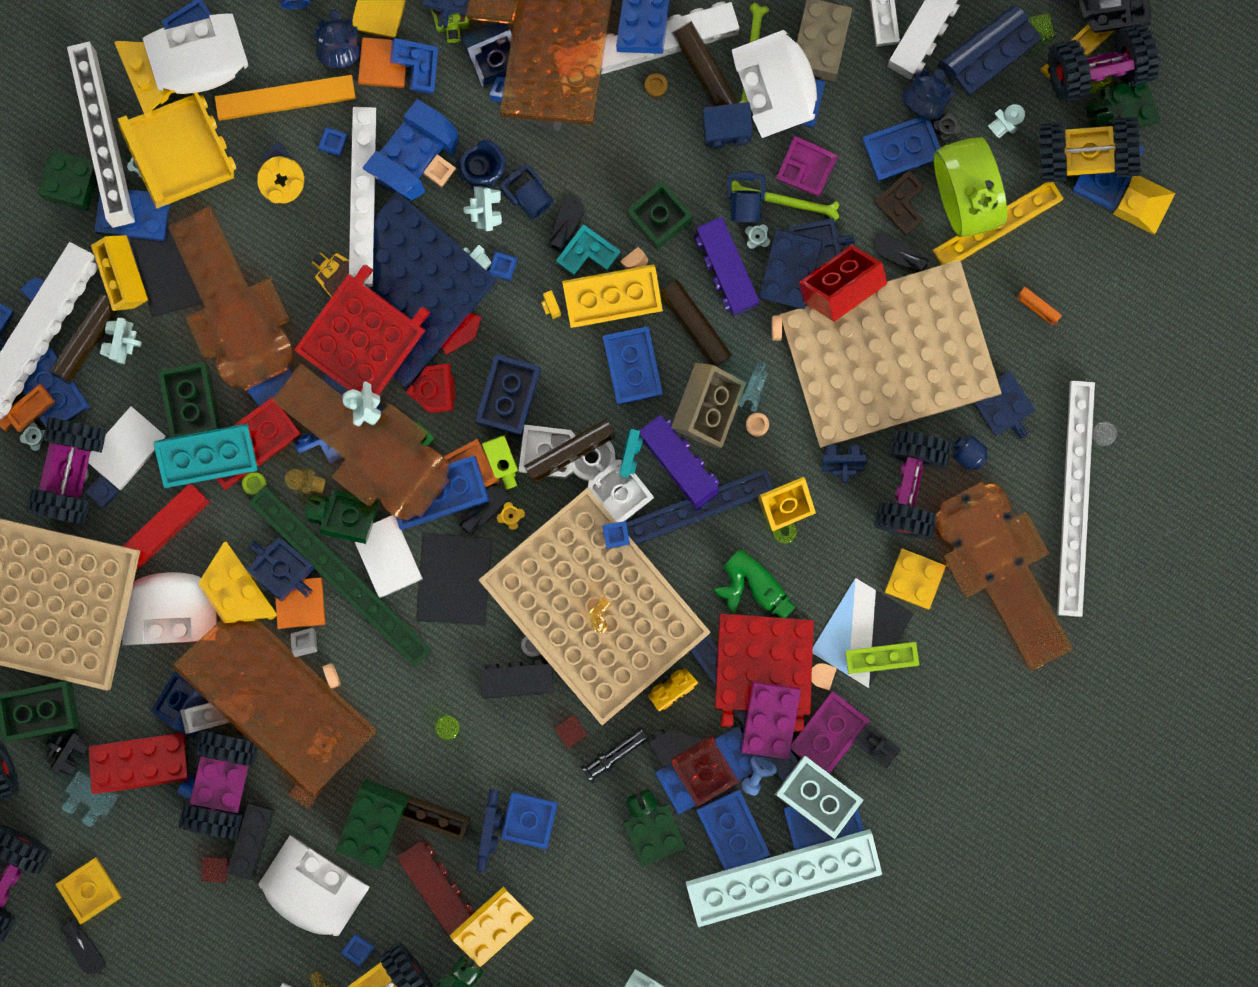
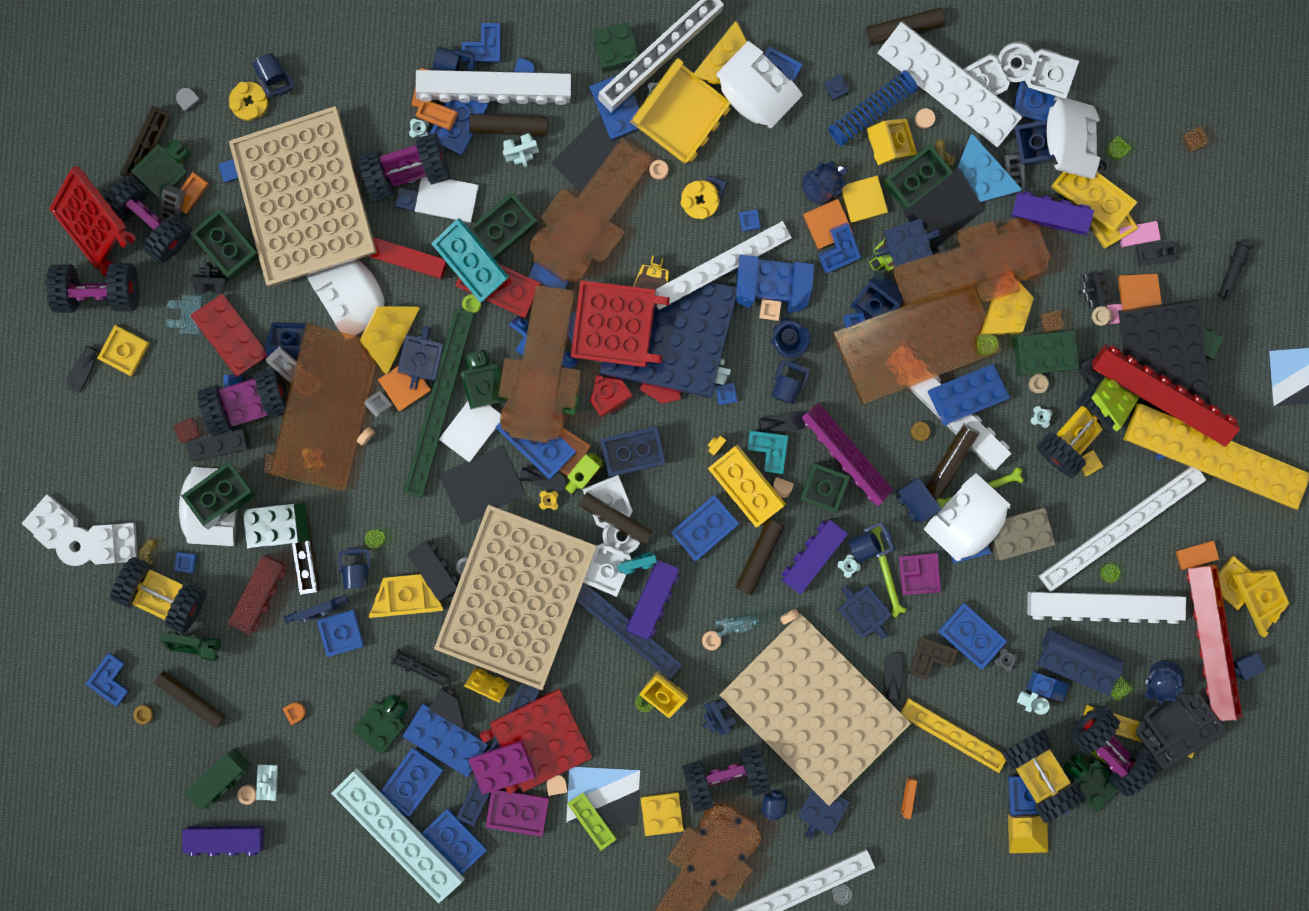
camera: 65 degrees right, 5 degrees up
(119, 272) = (568, 122): yellow brick -> none
(225, 207) = (658, 169): none -> light nougat tile
(285, 97) = (763, 167): light orange tile -> none
(304, 481) = (490, 340): clear yellow hips -> none
(304, 867) = (218, 495): none -> dark green brick
(363, 405) = (566, 353): light aqua hips -> none
(474, 768) = (354, 575): none -> dark blue piece
(481, 208) = (758, 356): light aqua hips -> none
(491, 927) = (251, 648): yellow plate -> none
(528, 728) = (404, 596): none -> yellow wing
(570, 731) = (419, 627): clear red tile -> none
(588, 919) = (295, 712): none -> orange tile
(597, 616) = (509, 603): clear yellow arm -> none
(616, 535) = (573, 585): blue plate -> none
(636, 171) = (847, 454): none -> magenta plate
(704, 770) = (440, 740): clear red brick -> none
(708, 405) = (704, 599): dark tan brick -> none
(762, 584) = (598, 706): green piece -> none
(762, 767) = (466, 778): medium blue piece -> none
(789, 262) = (837, 604): dark blue plate -> none
(819, 797) = (466, 831): light aqua brick -> none
(843, 283) = (846, 648): red brick -> none
(876, 745) = (526, 851): black hips -> none
(928, 94) = (1021, 634): dark blue hair -> none
(961, 179) = (970, 695): lime cylinder -> none
(998, 97) = (1047, 686): none -> blue slope

